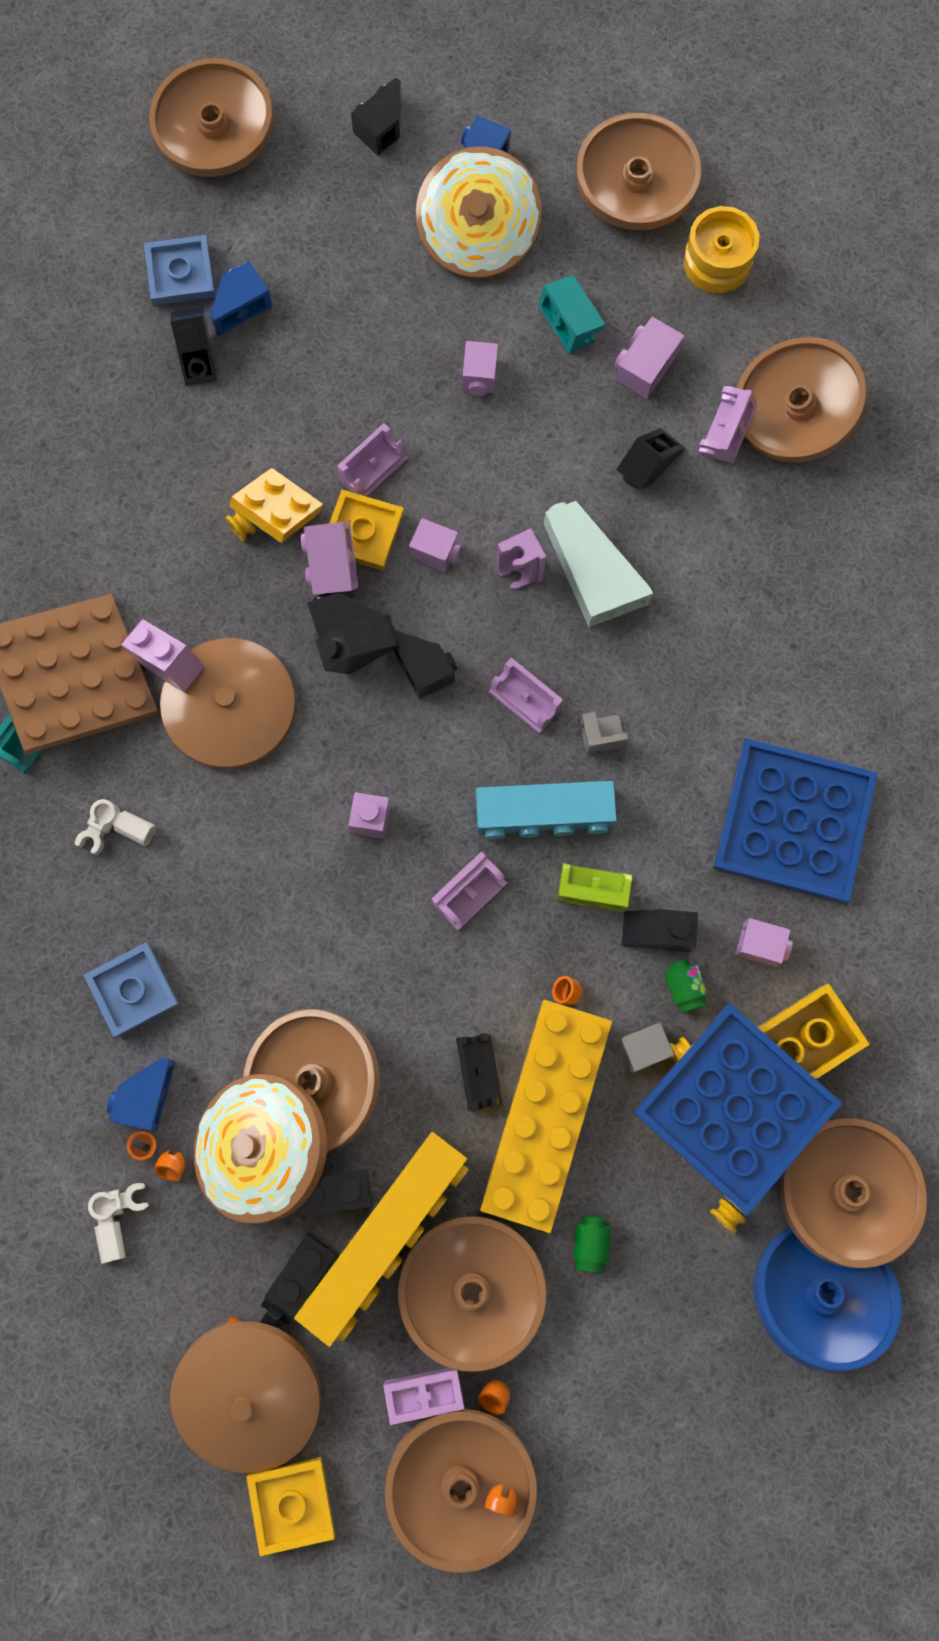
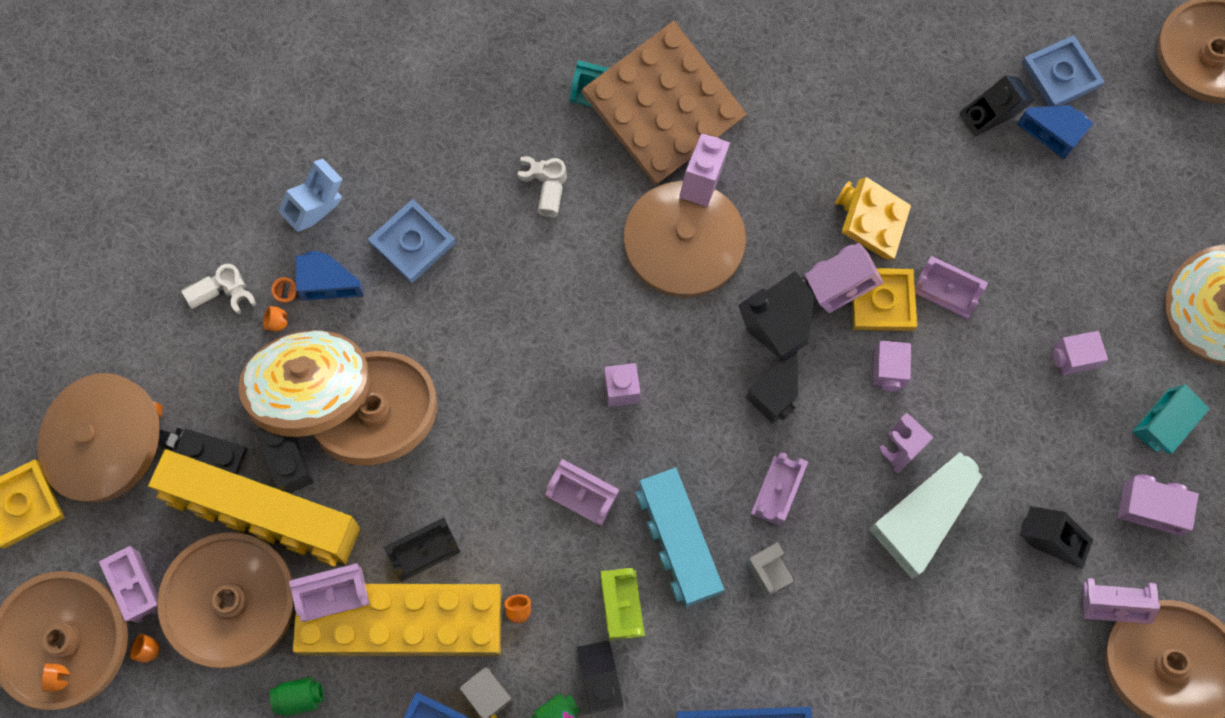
camera: 70 degrees right, 5 degrees down
(43, 1085) = (314, 199): none -> light blue brick
(505, 1176) = (329, 592): none -> lavender hinge

